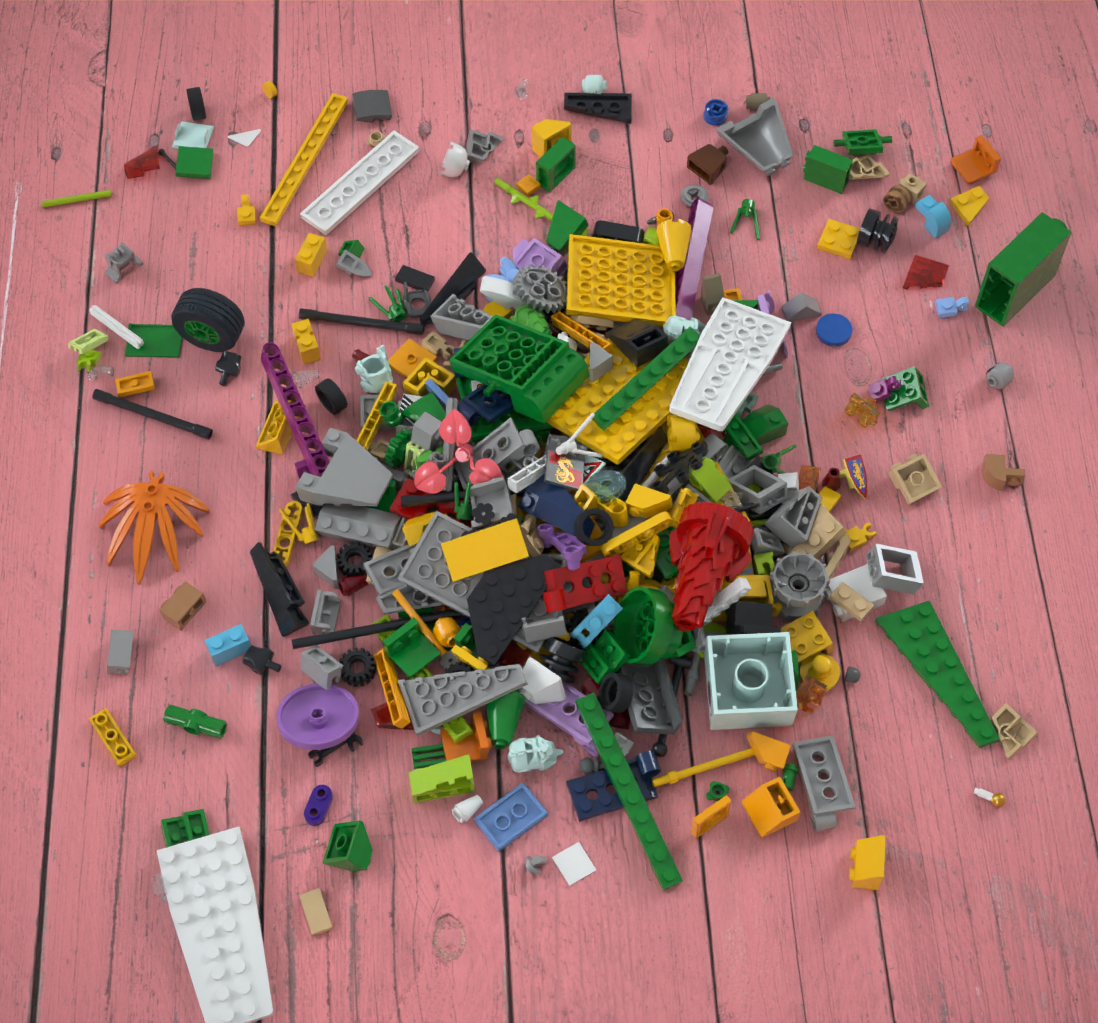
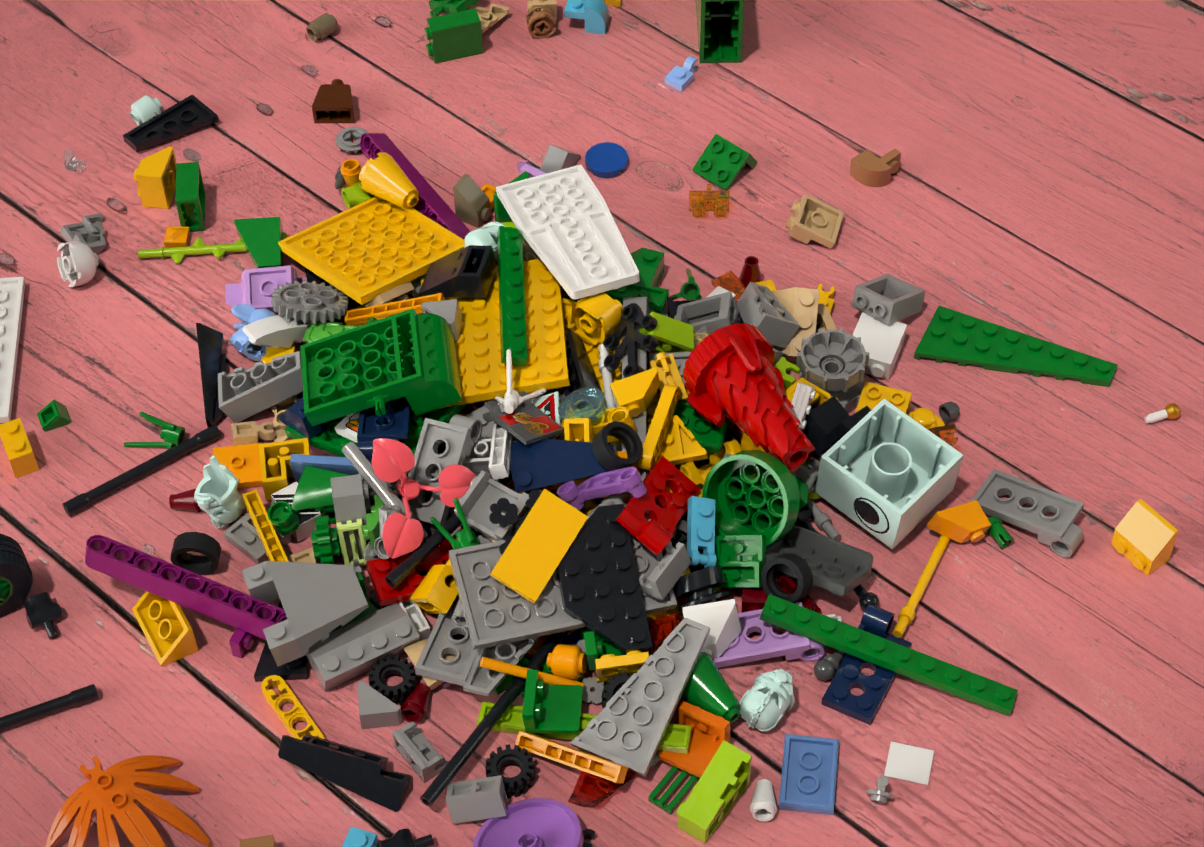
camera: 45 degrees left, 10 degrees down
(306, 341) = (110, 525): yellow piece -> none
(309, 534) = (318, 691): yellow plant -> none
(352, 264) = (73, 426): light grey plate -> none
(412, 295) = (169, 408): dark grey piece -> none
(414, 278) = (154, 394): black tile -> none
(618, 231) = (316, 213): black beam -> none
(710, 817) = (981, 613): light orange plate -> none
(715, 112) = (291, 60): blue wheel -> none
(717, 786) = (957, 589): green plate -> none
(747, 210) = (417, 117): green plant -> none
(760, 138) = (364, 49): light grey cone -> none
(771, 807) = (1017, 565): light orange slope -> none
(838, 239) = (525, 87): yellow plate -> none
(851, 601) = (888, 349): tan plate -> none
(855, 474) = (764, 263): shield -> none
(876, 230) = (556, 54): black wheel -> none
(881, 389) = (706, 173): magenta plate -> none
(925, 273) = (632, 63): clear red slope -> none
(1000, 374) = (787, 96): light grey head -> none
(1012, 730) = (1118, 349): tan slope -> none

